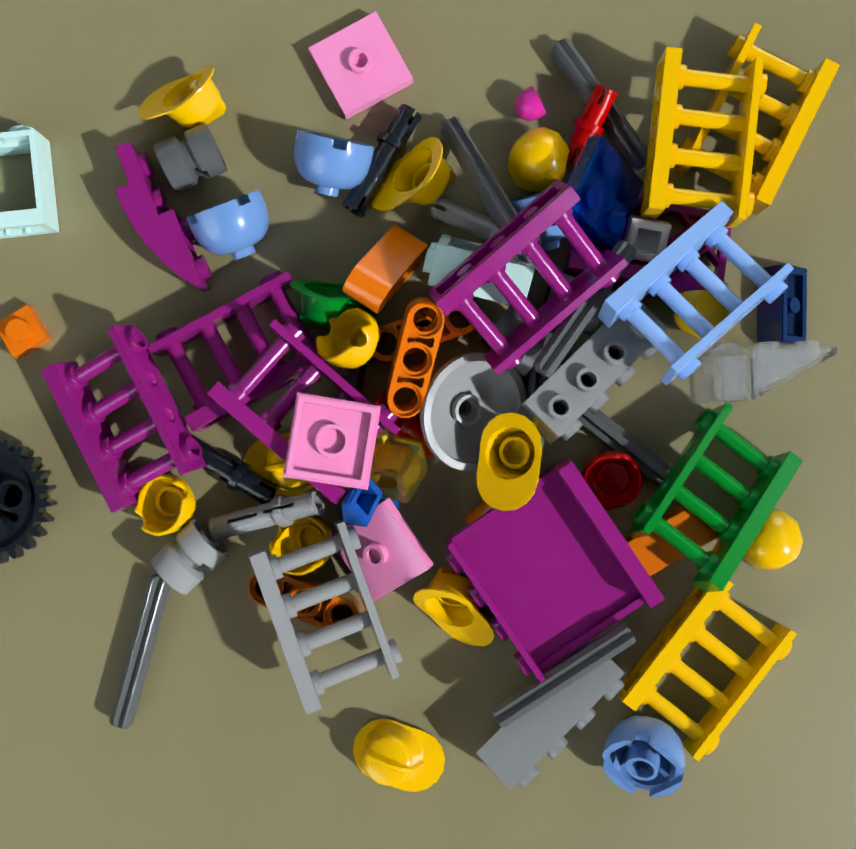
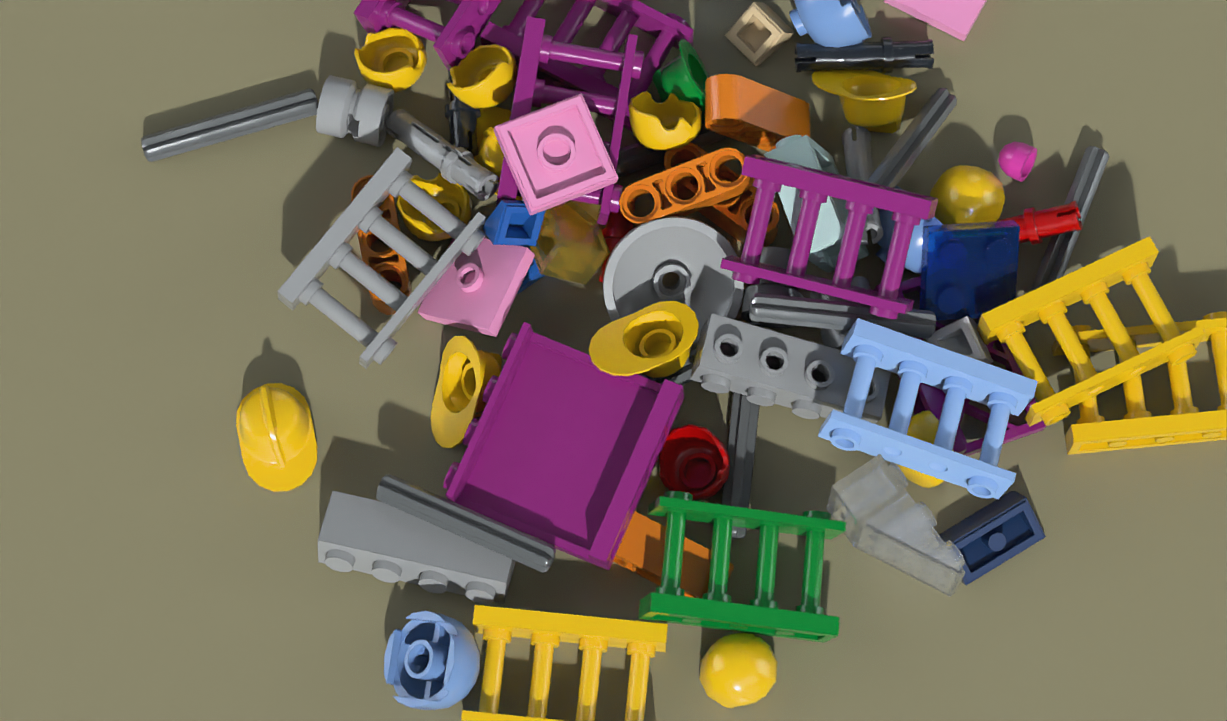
camera: 65 degrees right, 15 degrees down
(227, 449) = (484, 76): none -> yellow hair
(314, 224) = (759, 32): none -> tan slope

